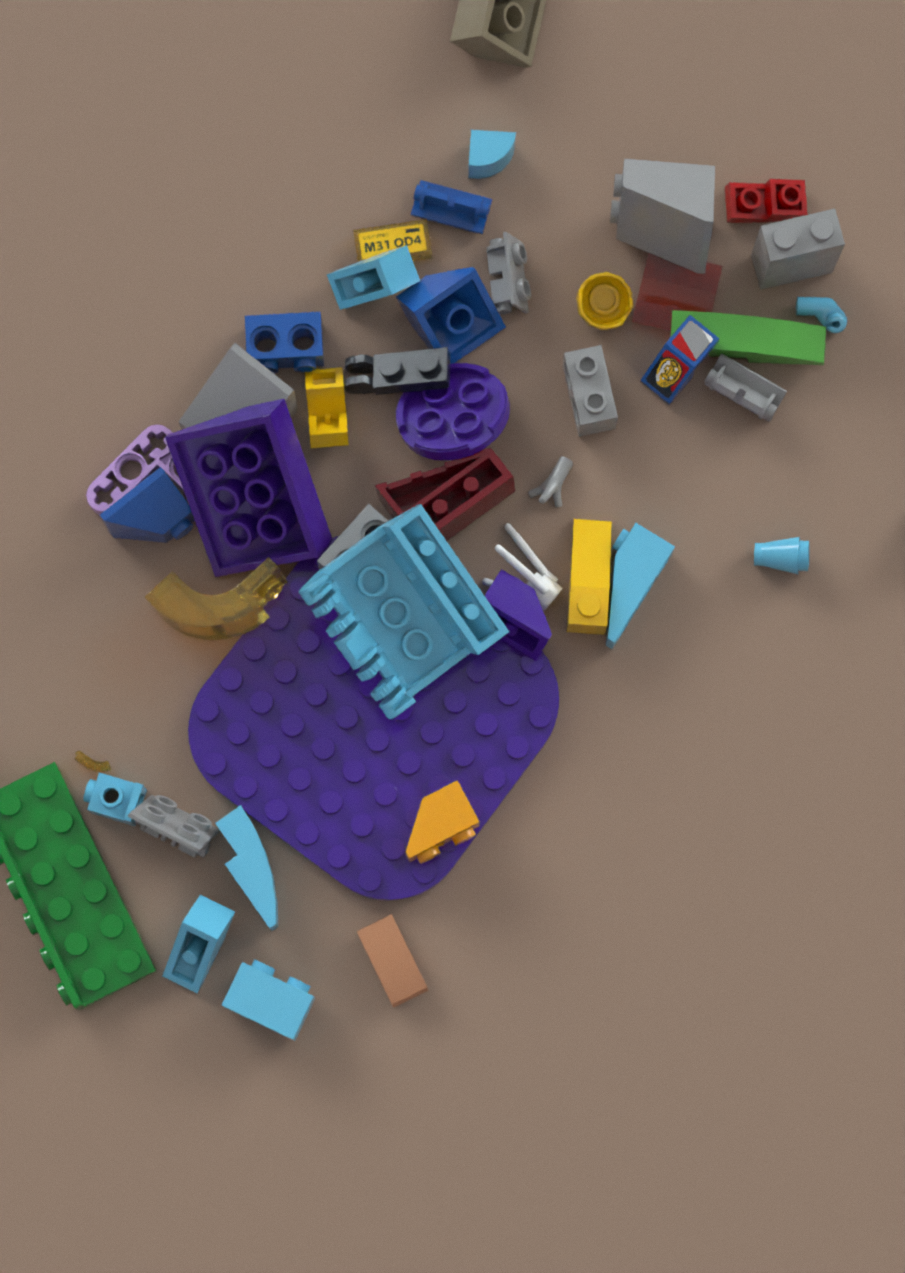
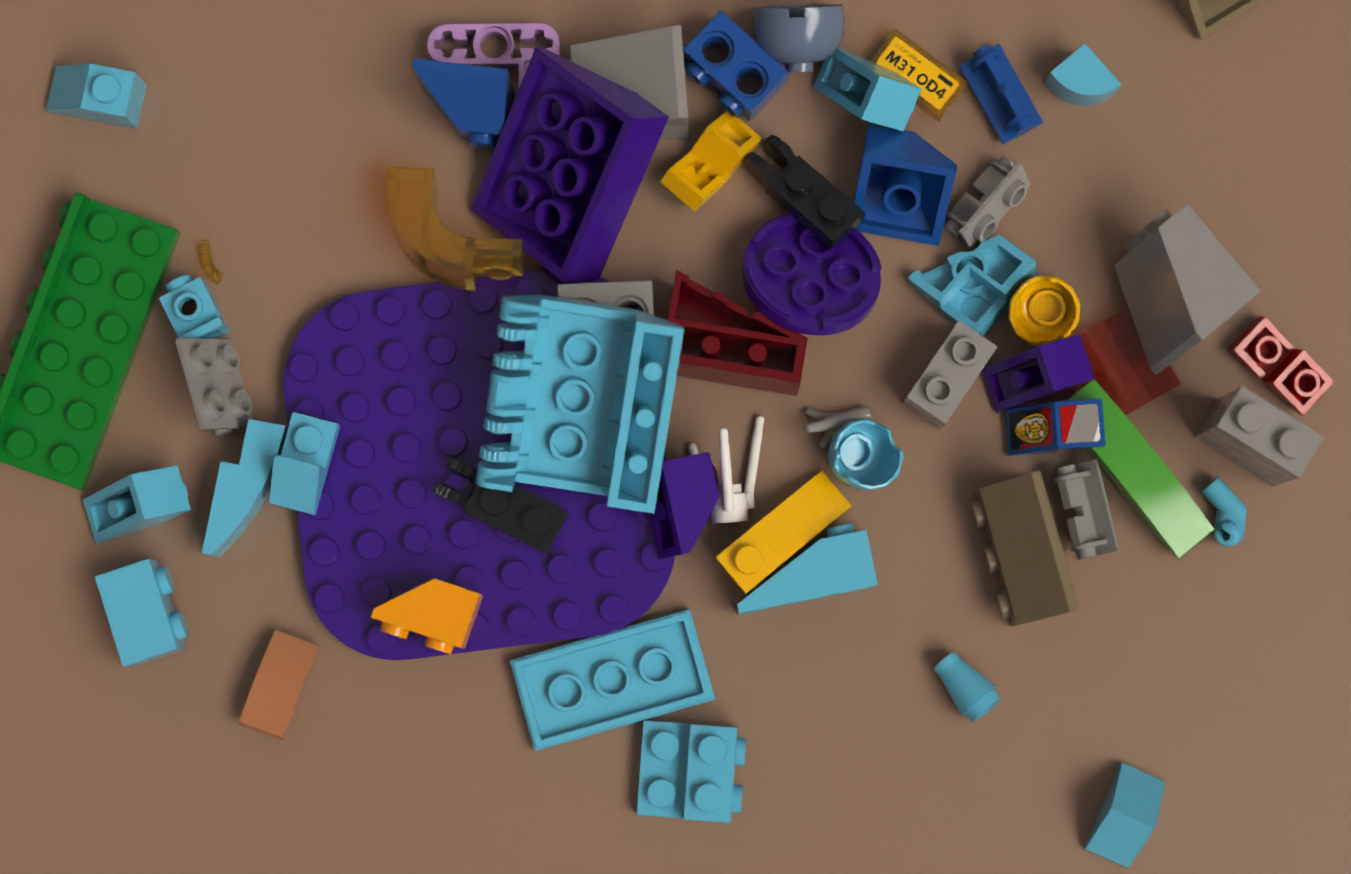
camera: 50 degrees right, 5 degrees up
(274, 816) = (303, 463): none -> medium azure slope
(303, 284) = (799, 33): none -> sand blue cylinder
(421, 721) = (512, 512): none -> black hinge
(549, 325) = (976, 283): none -> medium azure slope
(580, 759) = (612, 680): none -> medium azure tile
(590, 483) = (864, 455): none -> medium azure hair
(638, 339) = (1038, 373): none -> dark purple slope
(679, 763) = (690, 771): none -> medium azure plate
(735, 443) = (1024, 549): none -> dark tan slope

